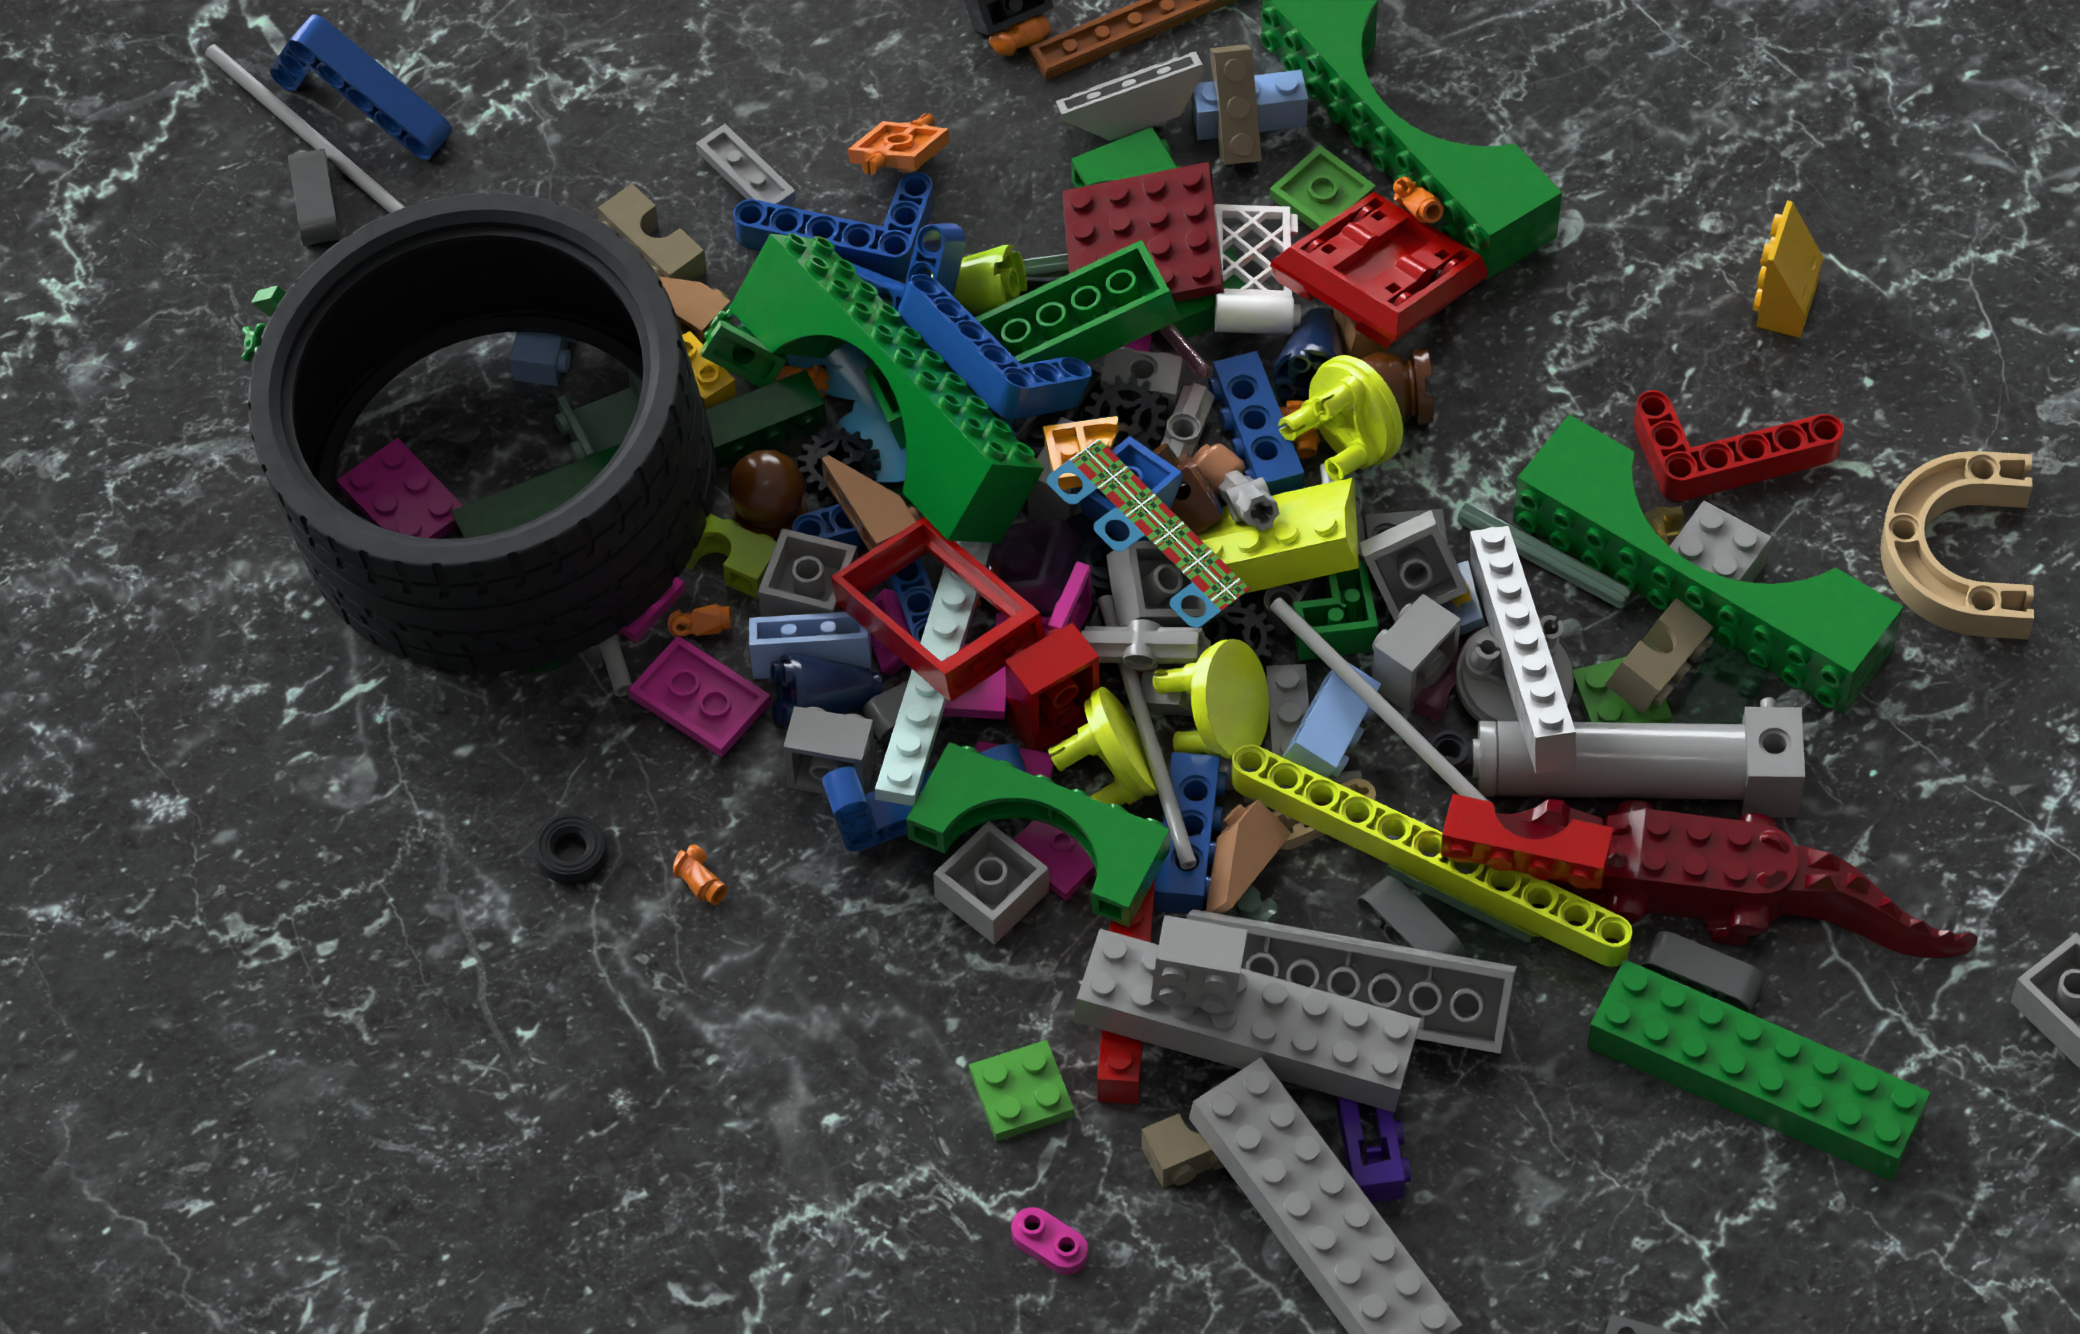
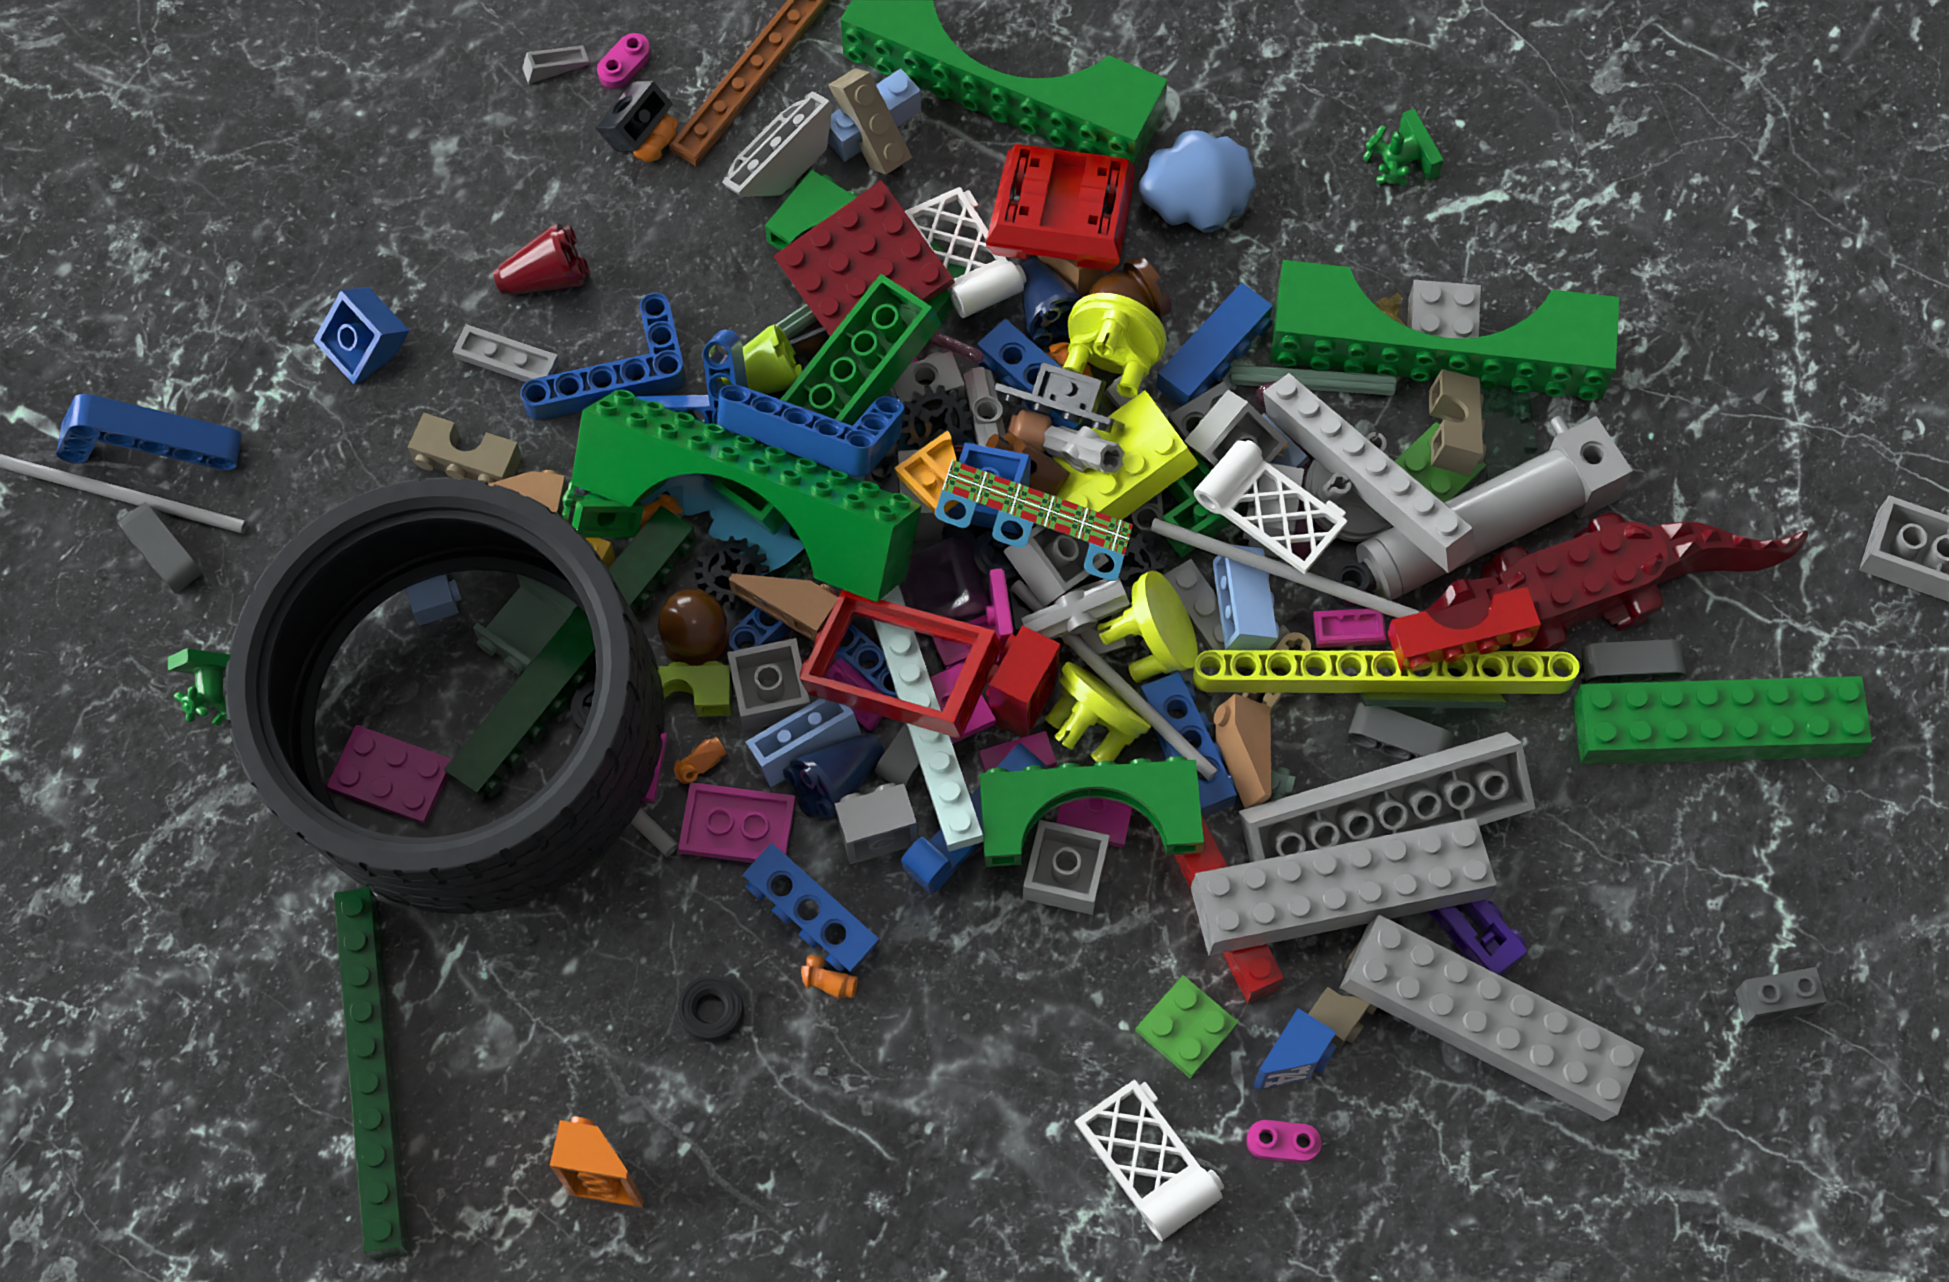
camera: 30 degrees left, 10 degrees up
(219, 749) = (371, 1075): none -> dark green brick
(362, 911) = (590, 1165): none -> orange slope
(620, 88) = (360, 333): none -> blue slope
(746, 853) = (774, 865): none -> blue brick
(834, 101) = (543, 264): none -> dark red cone
(899, 145) = (620, 278): orange plate -> none
(918, 1234) = (1183, 1194): none -> white piece
(1104, 1157) = (1297, 1053): none -> blue slope
(1198, 964) = (1304, 870): light grey brick -> none
(1268, 441) = (1064, 391): none -> bracket
(1320, 188) = (969, 160): bright green plate -> none
(1388, 592) = (1238, 474): none -> white piece
(1417, 200) = (1057, 136): orange arm -> none
(1419, 799) = (1348, 628): none -> dark pink plate
(1458, 474) = (1215, 346): none -> blue brick
(1543, 312) = (1199, 181): none -> medium blue piece
(1728, 454) = (1402, 233): red beam -> none
(1780, 378) = (1406, 146): none -> green piece
(1787, 275) = (1363, 69): yellow slope -> none
(1916, 573) = (1583, 255): tan piece -> none

